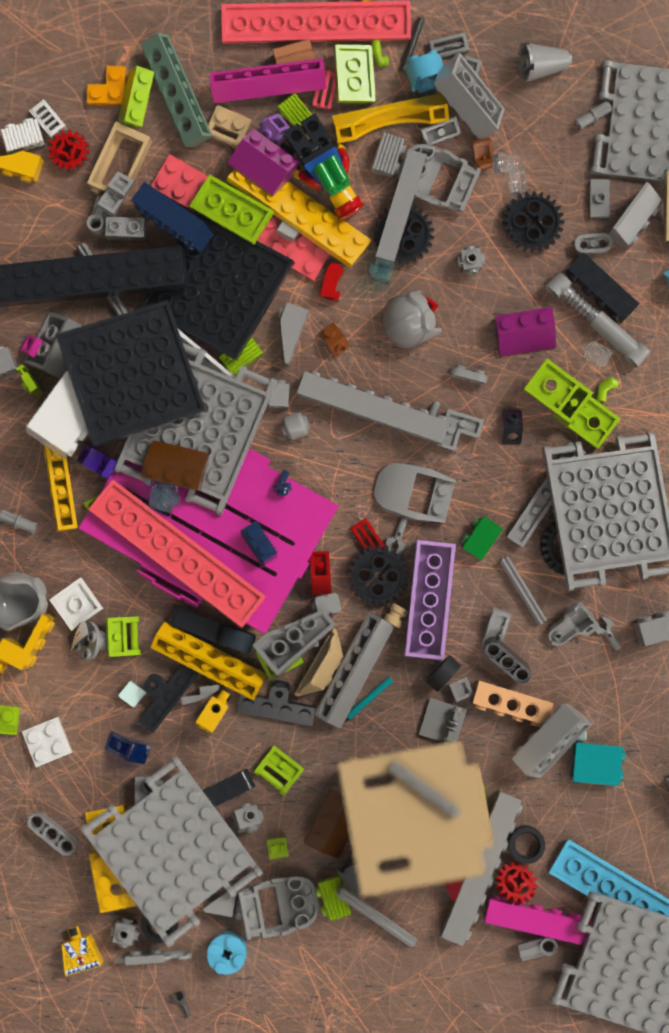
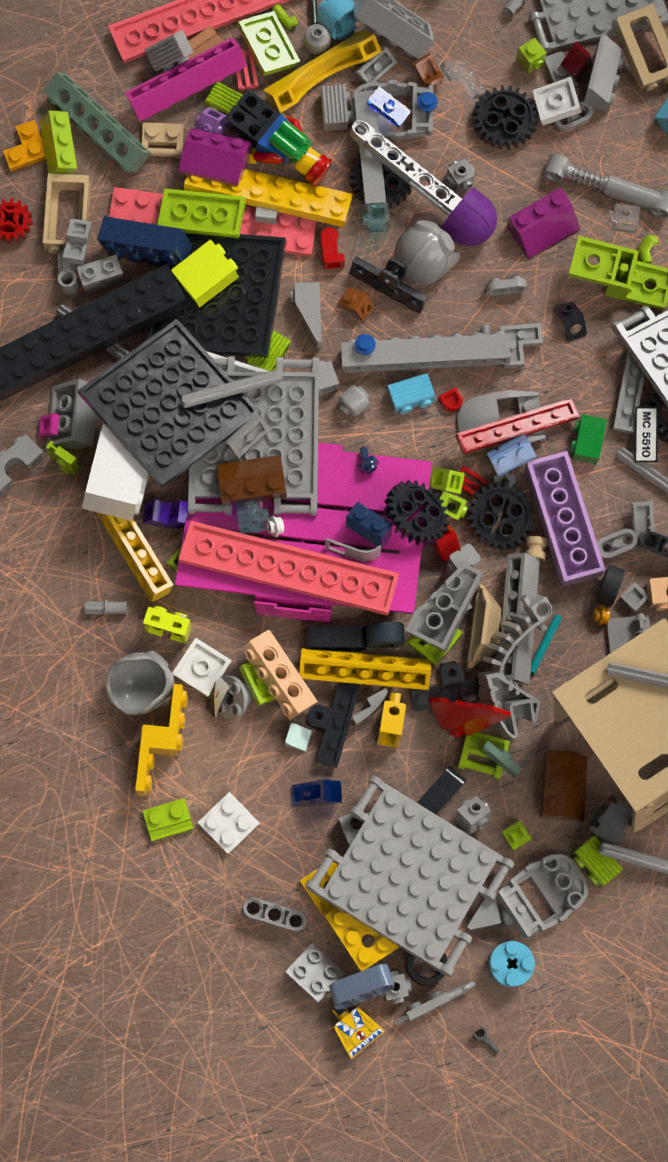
camera: 30 degrees left, 10 degrees down
(60, 556) = (159, 618): none -> neon yellow piece
(66, 893) = (314, 972): none -> light grey hinge
(95, 923) = (361, 986): none -> sand blue beam
(138, 627) = (280, 664): none -> light nougat brick
(181, 512) = (275, 526): none -> white plate
(187, 426) = (247, 435): none -> light grey plate
(188, 381) = (231, 388): none -> light grey axle
(212, 265) = (205, 272): none -> neon yellow brick
(239, 566) = (354, 553): none -> piece
(262, 50) = (168, 51): none -> light grey brick
(272, 736) = (465, 718): none -> red wedge
(290, 783) = (501, 758): none -> sand green plate
(310, 566) = (404, 501): none -> black gear
(310, 732) = (501, 690): none -> light grey piece
(322, 382) = (365, 344): none -> blue plate
(339, 557) = (460, 507): none -> lime brick
(344, 527) = (446, 480): none -> lime brick
(347, 438) = (411, 394): none -> medium azure brick
(369, 332) = (389, 282): none -> black plate
(380, 456) = (451, 400): none -> red tile
(398, 86) = (317, 39): none -> light grey head
(407, 528) = (511, 455): none -> medium blue brick
(424, 504) = (517, 425): none -> tile
(426, 693) = (601, 615): none -> light orange plate
(432, 175) = (388, 107): none -> clear blue plate
(461, 304) = (469, 218): none -> piece
(466, 638) = (616, 543): none -> light grey plate
(468, 183) = (427, 101): none -> blue plate
(531, 554) = (646, 435): none -> sticker
(580, 174) = (531, 55): none -> lime brick
(583, 225) = (556, 101): none -> white plate
(602, 288) = (601, 154): black brick -> none
(616, 195) = (577, 60): none -> dark red slope

